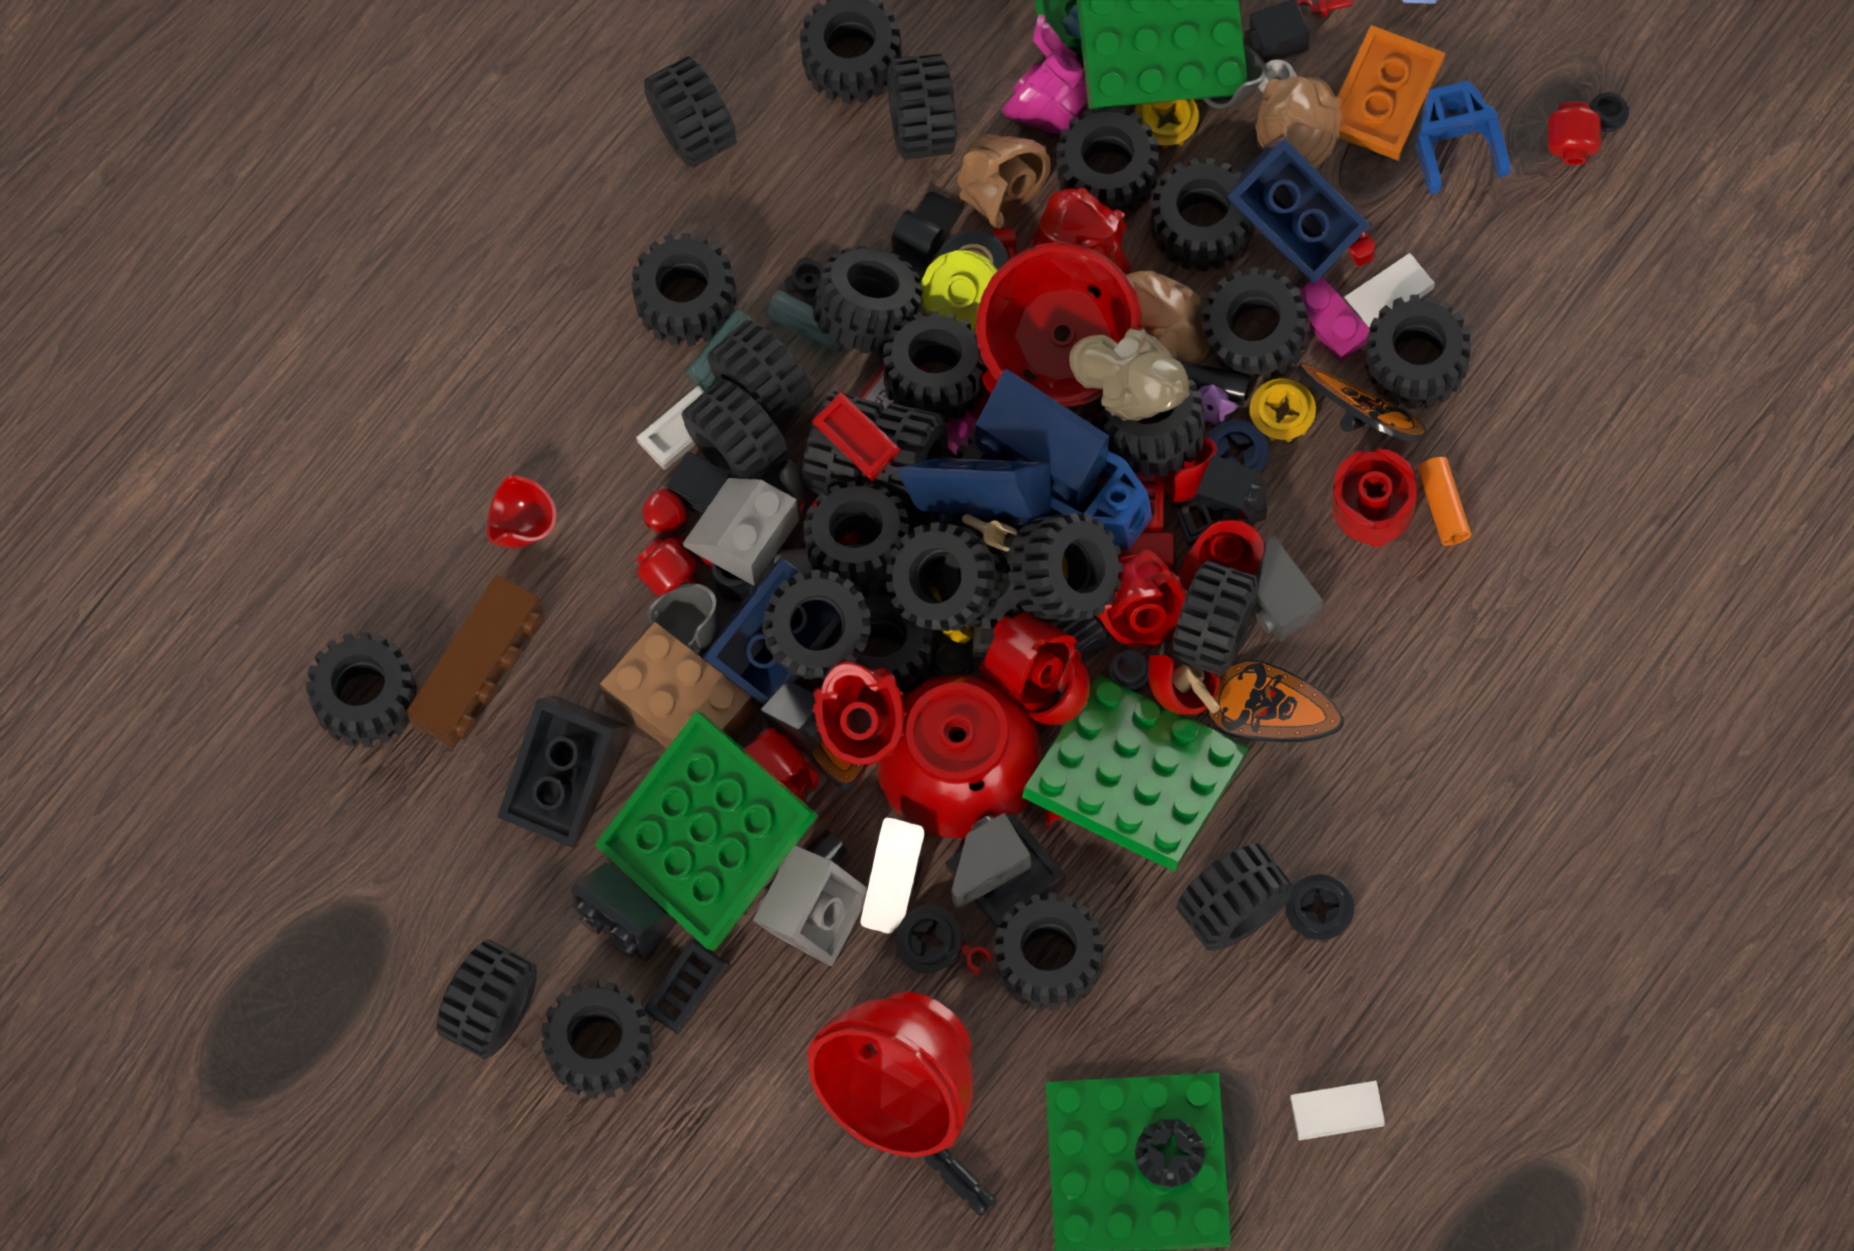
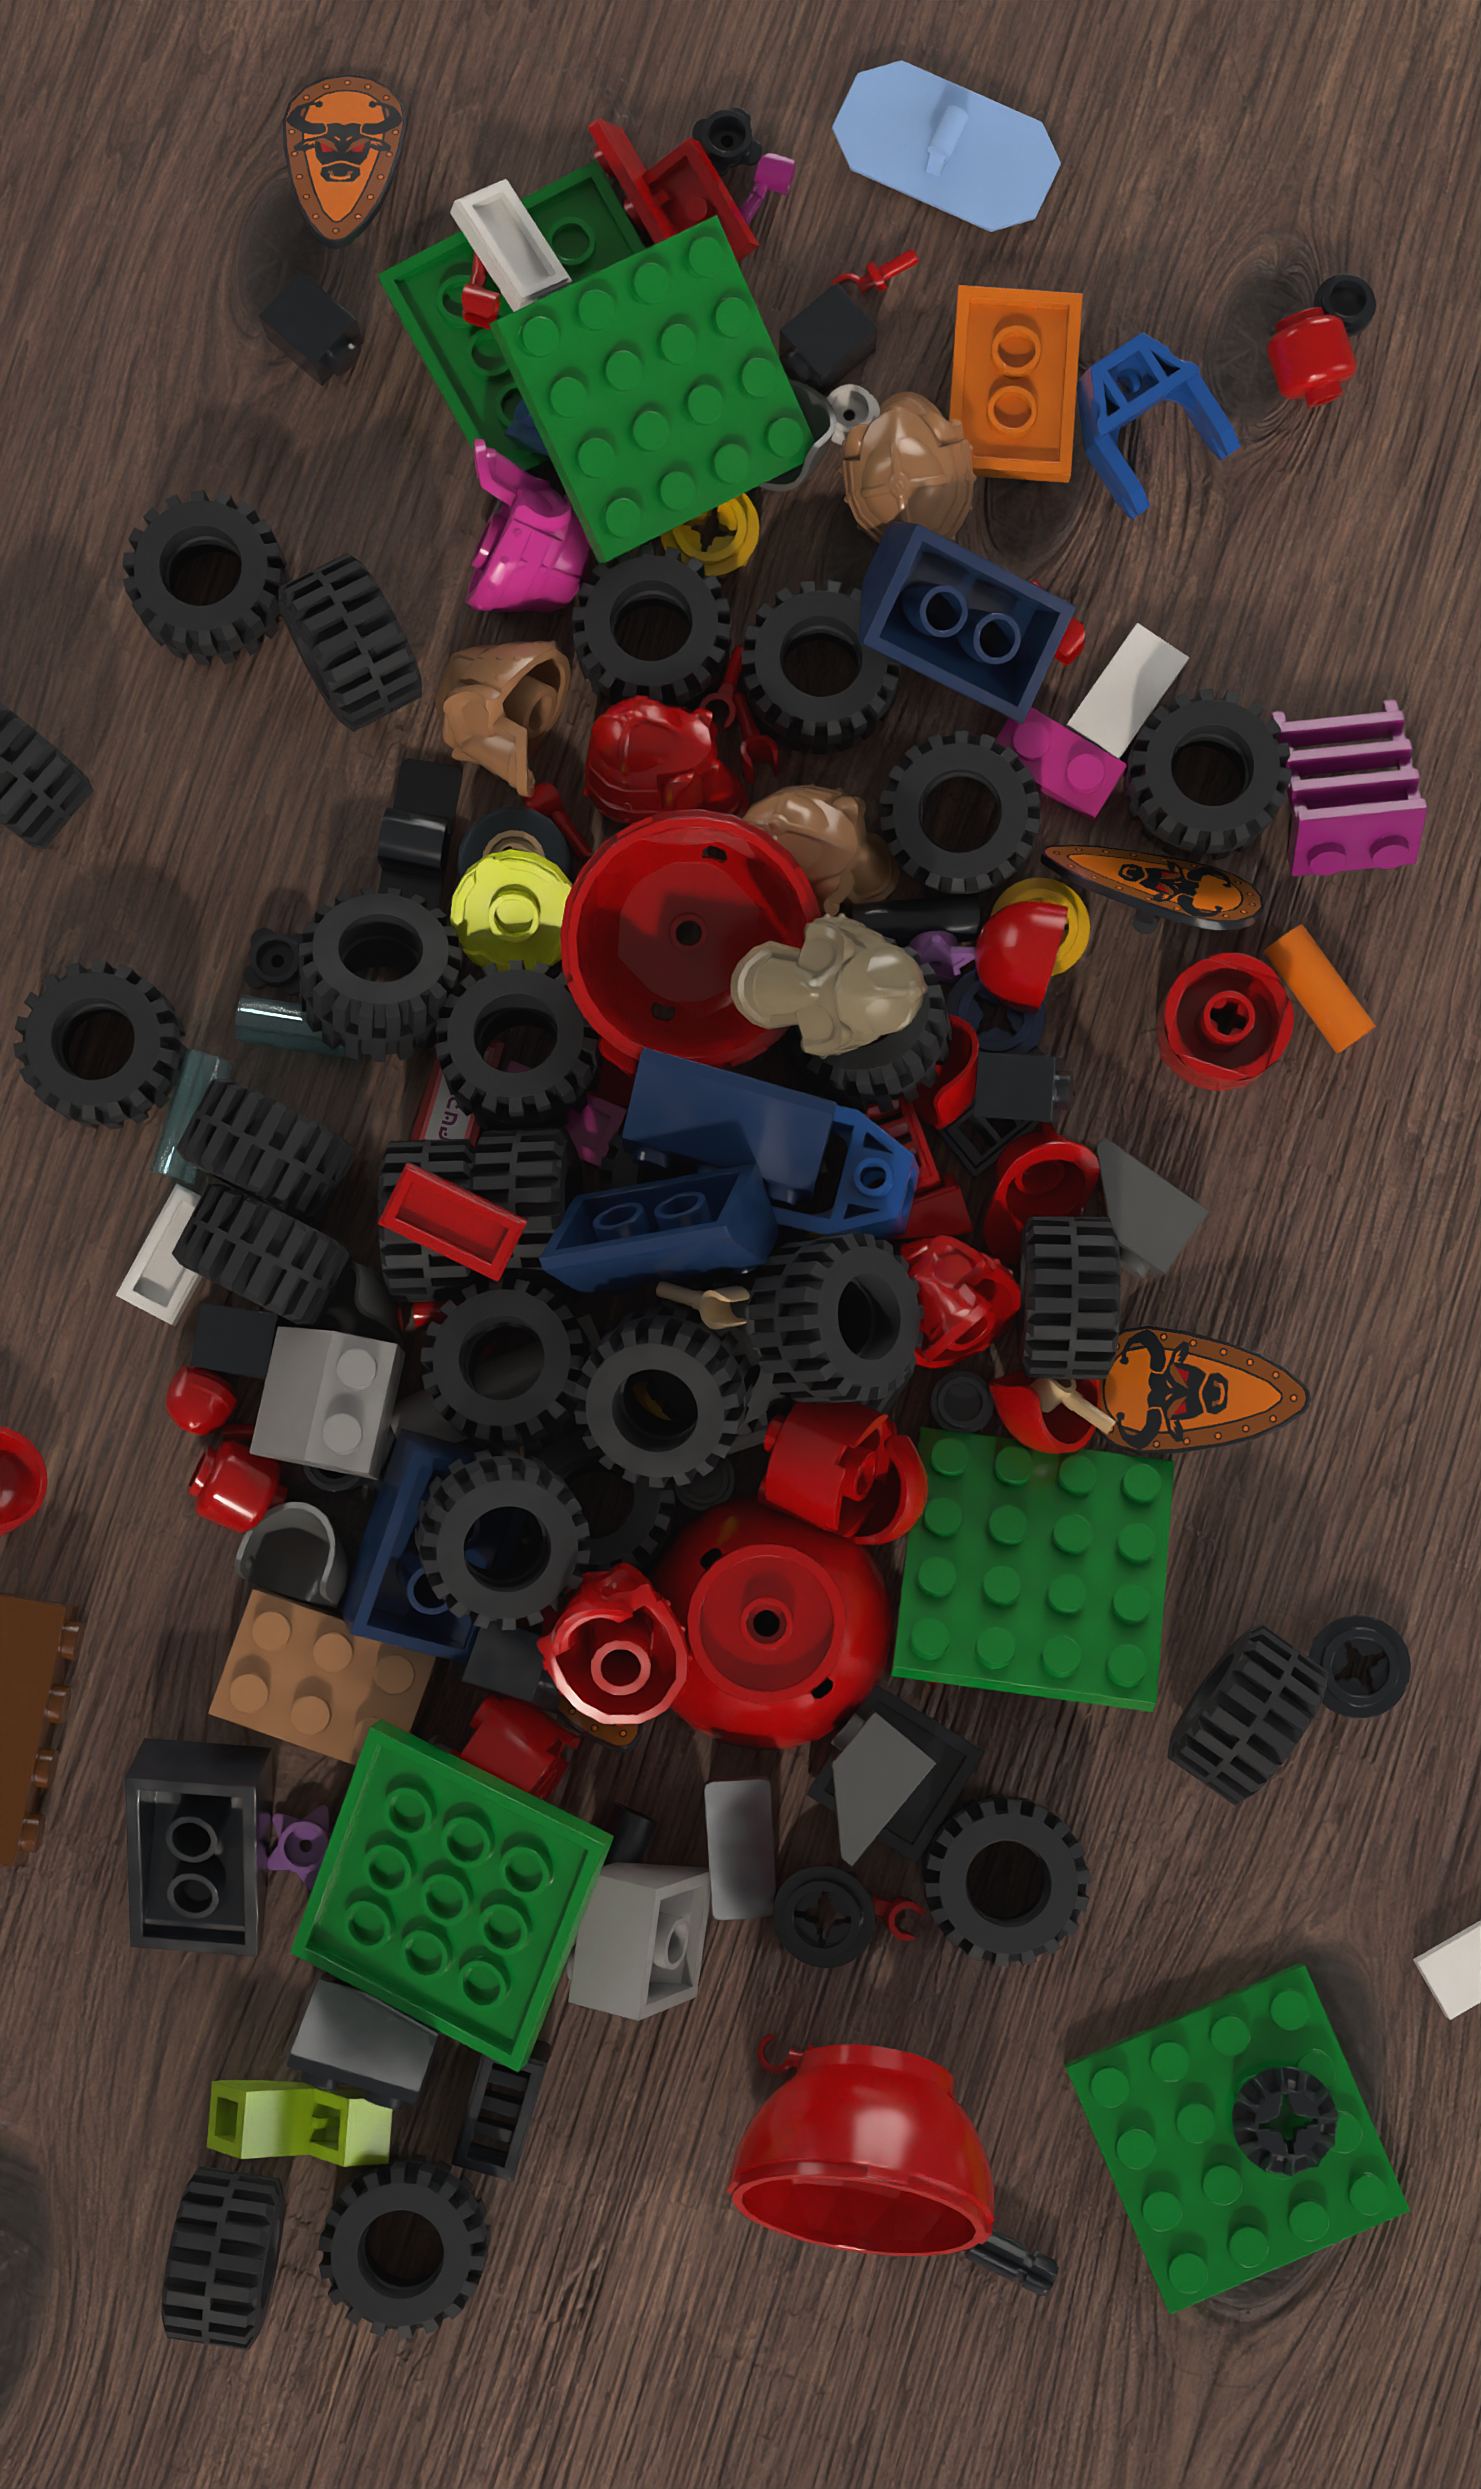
camera: 25 degrees left, 15 degrees up
(559, 948) = (297, 2119): none -> lime brick
(619, 786) = (290, 1833): none -> medium lavender plate
(1138, 215) = (727, 688): none -> red hand
(1146, 249) = (755, 746): none -> red hand
(1258, 411) = (1019, 952): none -> red helmet
(1503, 392) = (1356, 817): none -> magenta plate

